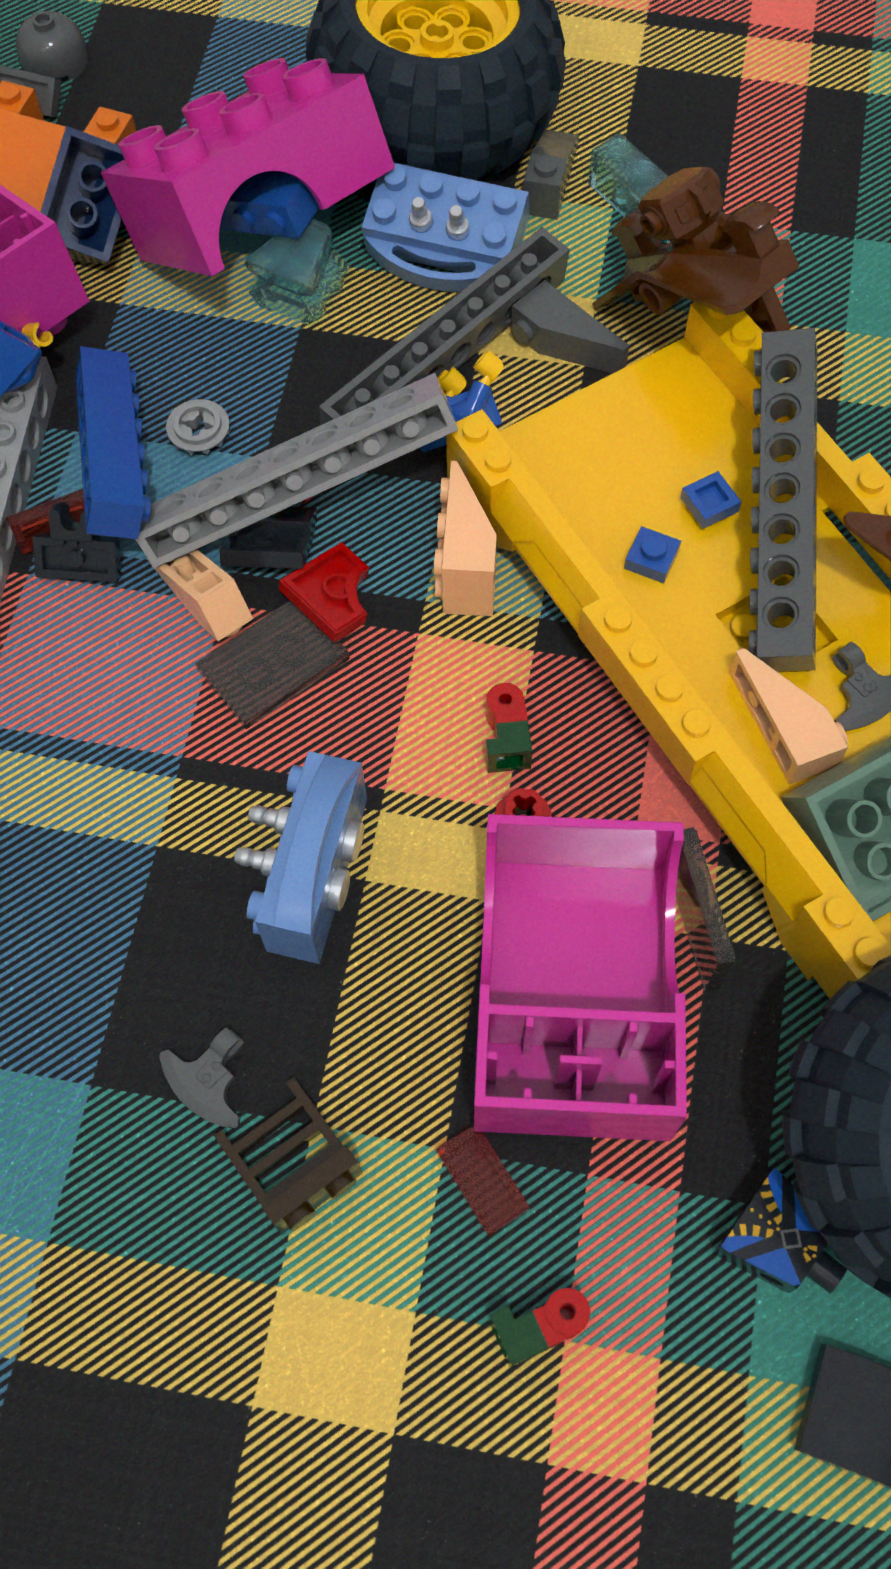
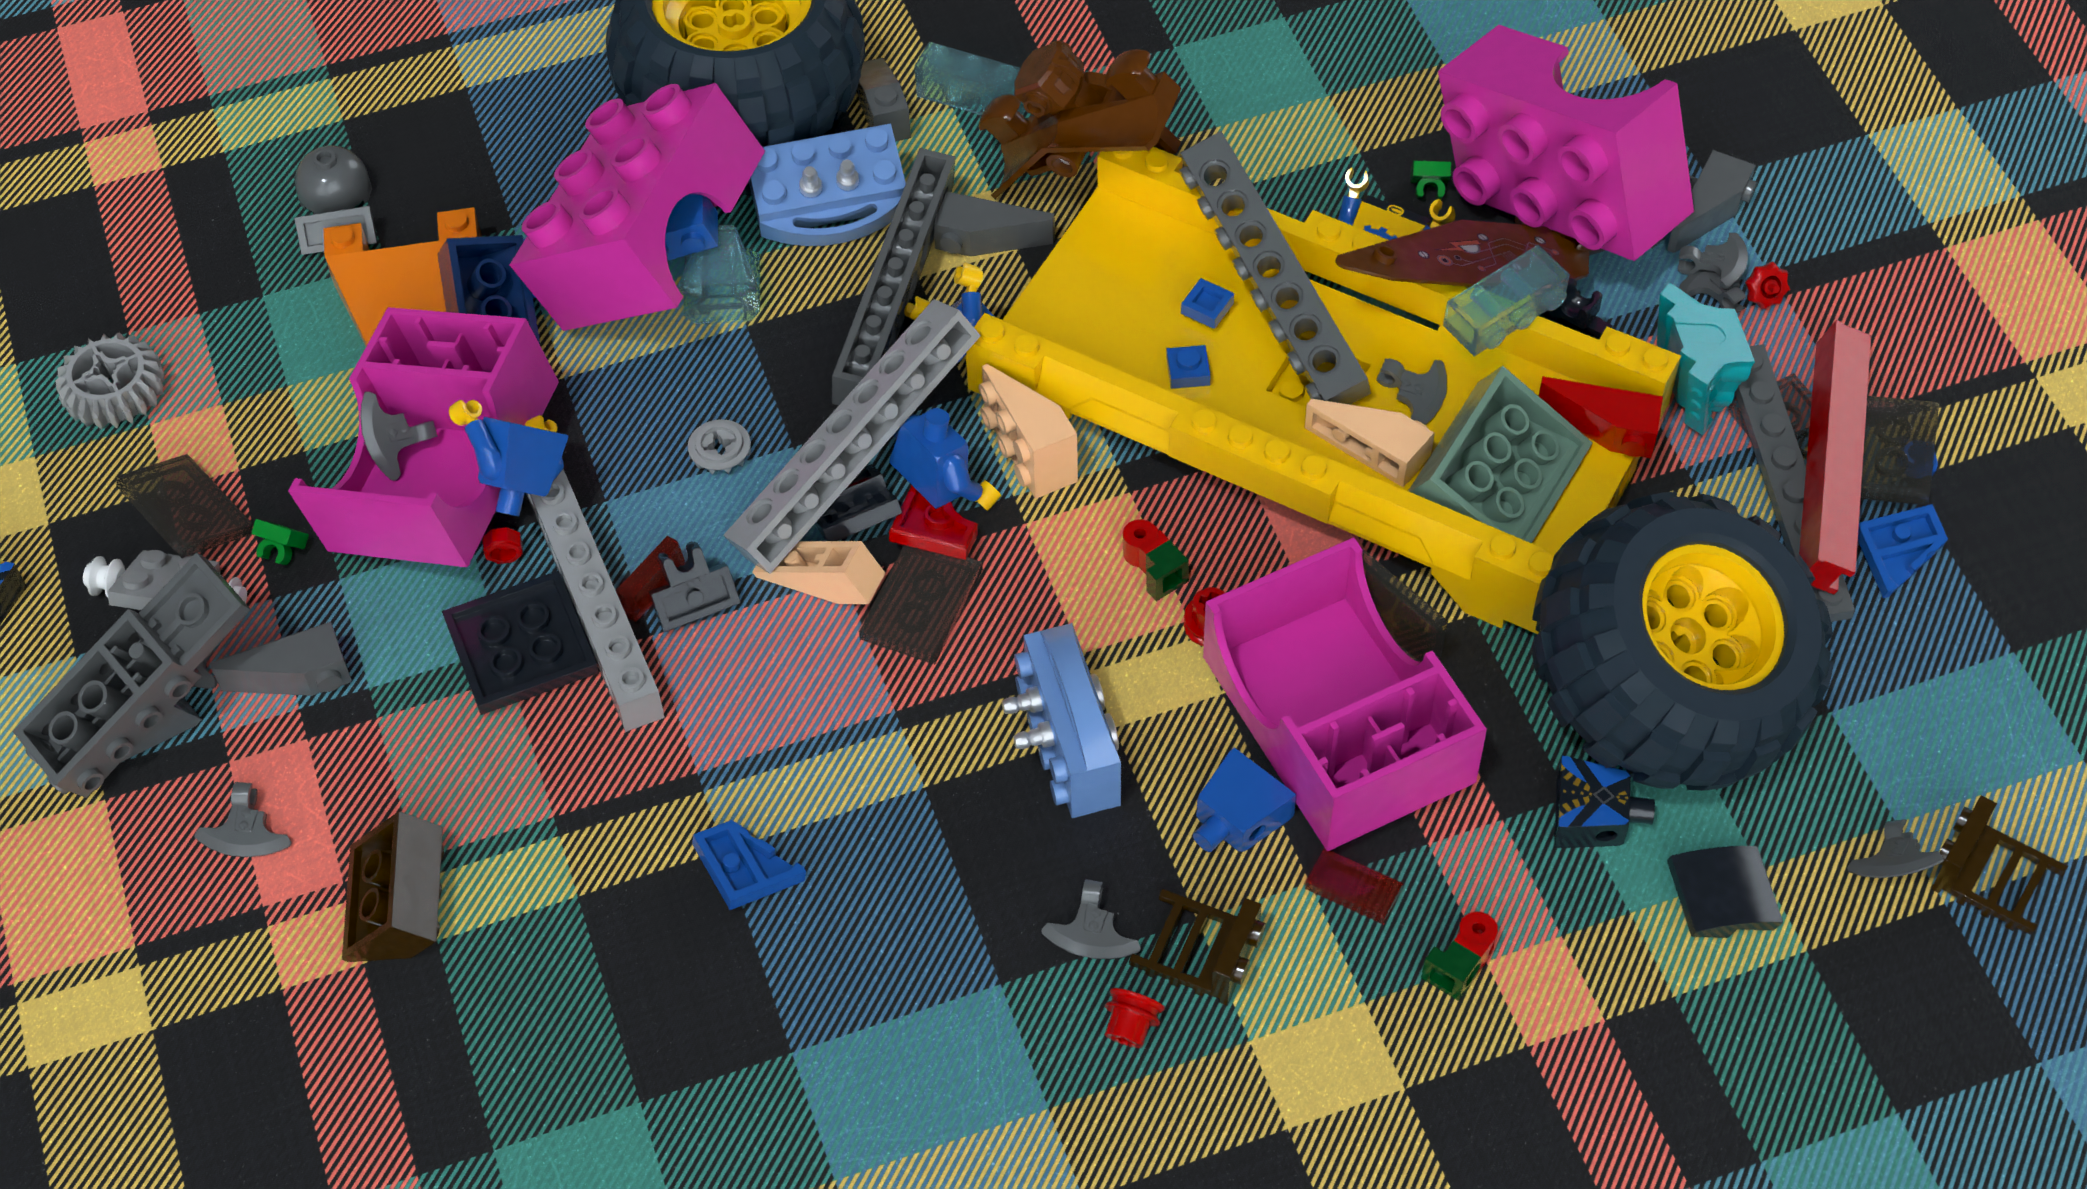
camera: 30 degrees left, 10 degrees down
(110, 444) = (668, 486): blue brick -> none
(172, 1199) = (1131, 1017): none -> red piece
(361, 534) = (937, 461): none -> blue torso
(422, 1032) = (1241, 805): none -> blue torso

